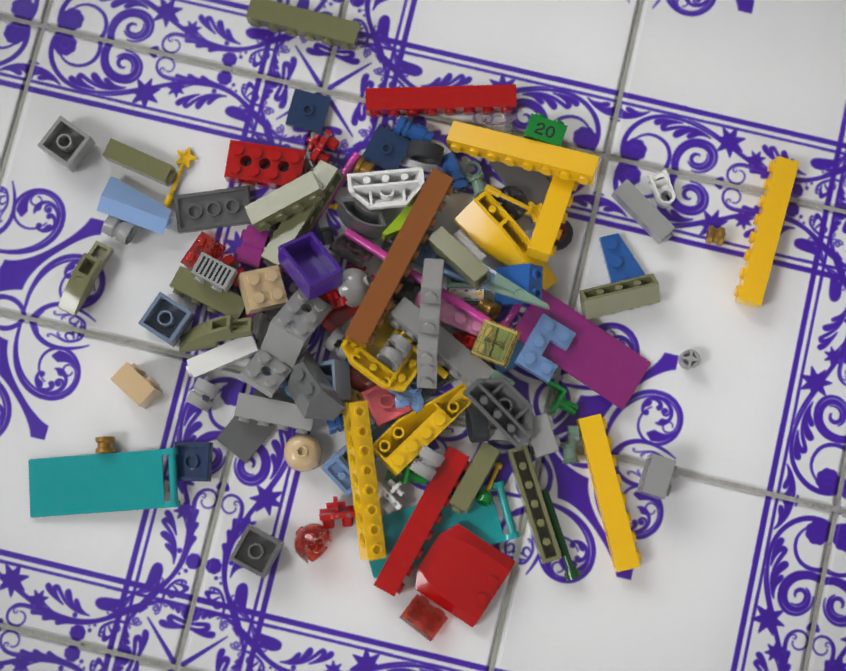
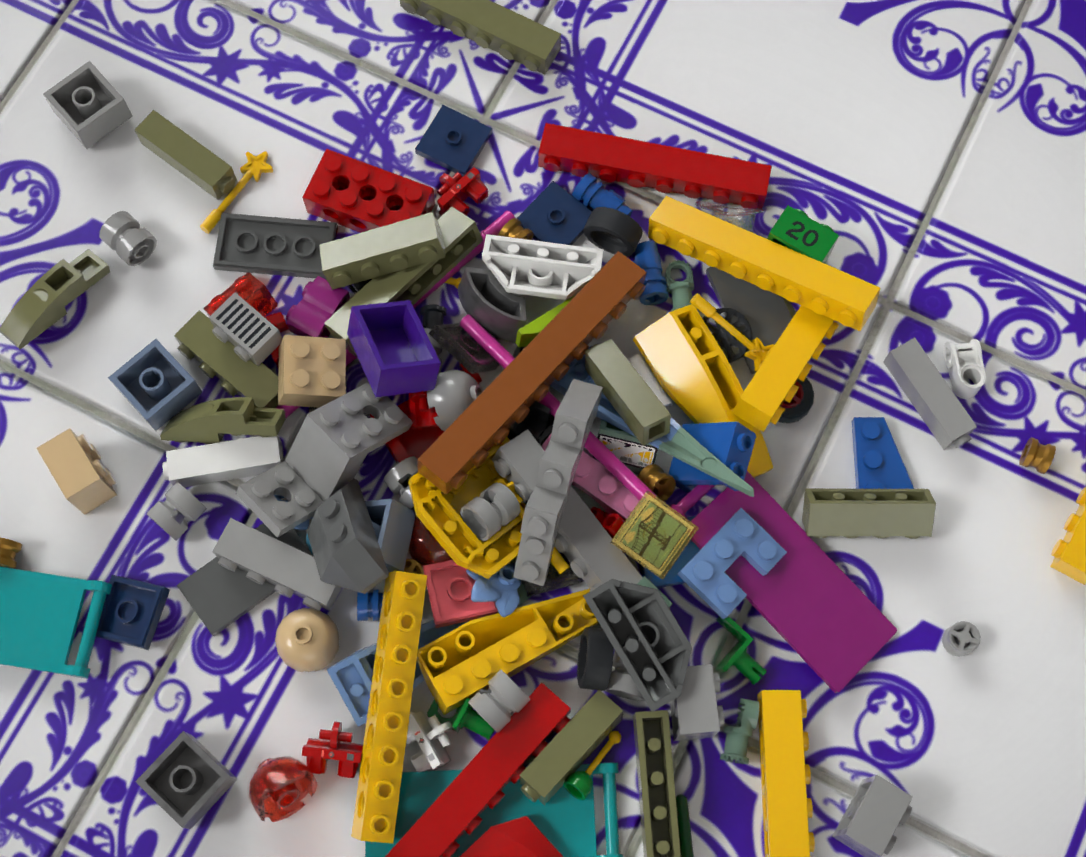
camera: 15 degrees right, 10 degrees down
(134, 207) = (156, 211): light blue slope -> none

